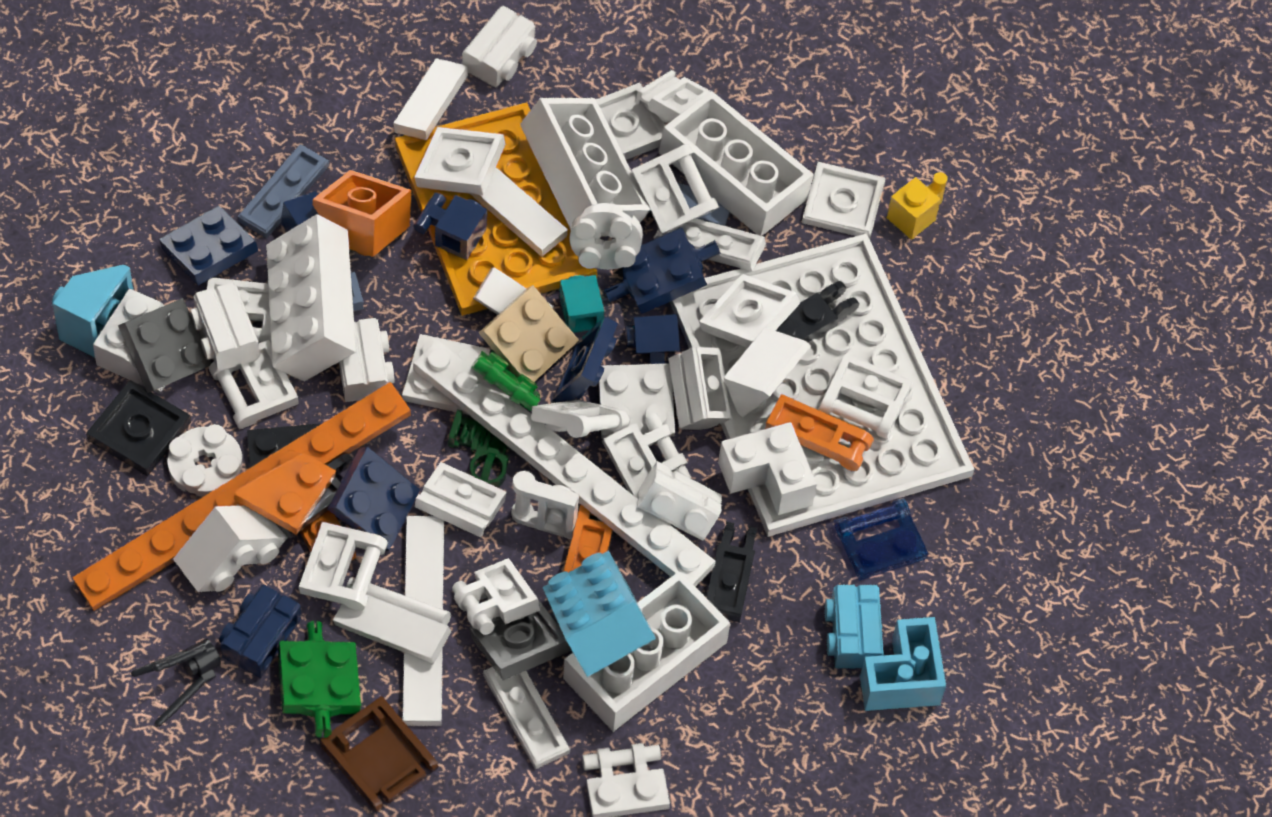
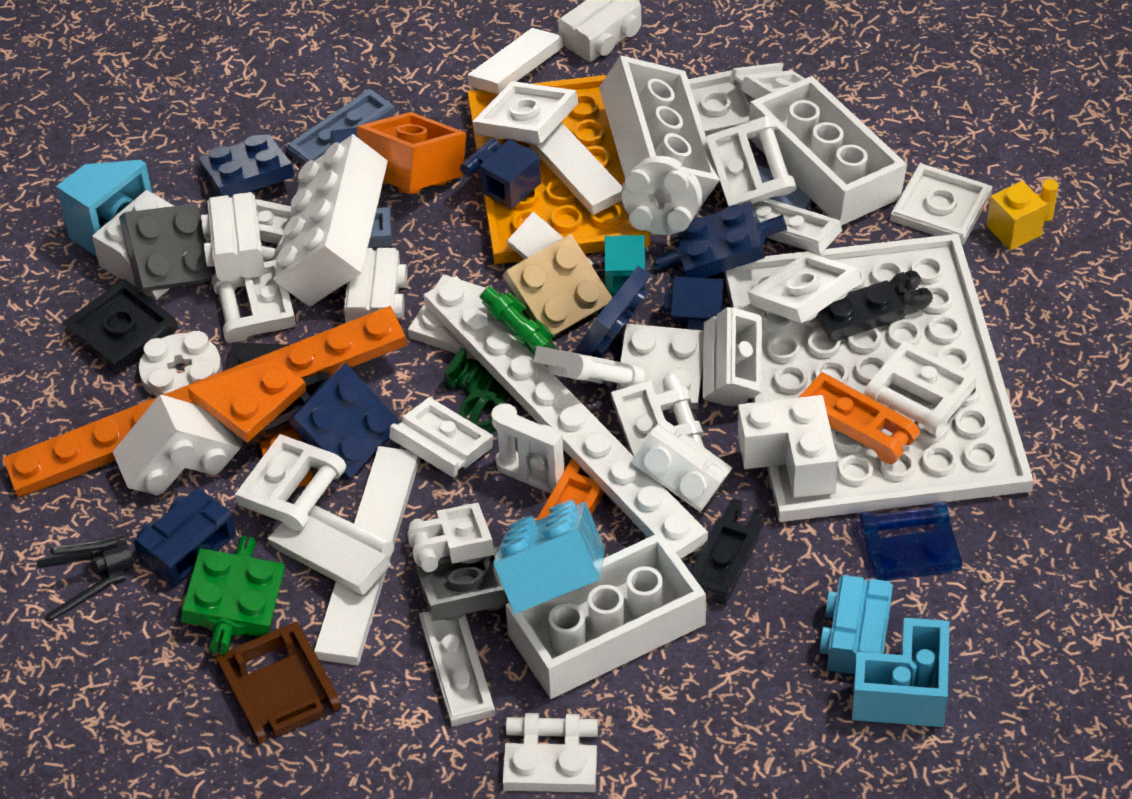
camera: 20 degrees right, 10 degrees down
(763, 368) = (803, 341): white slope -> none

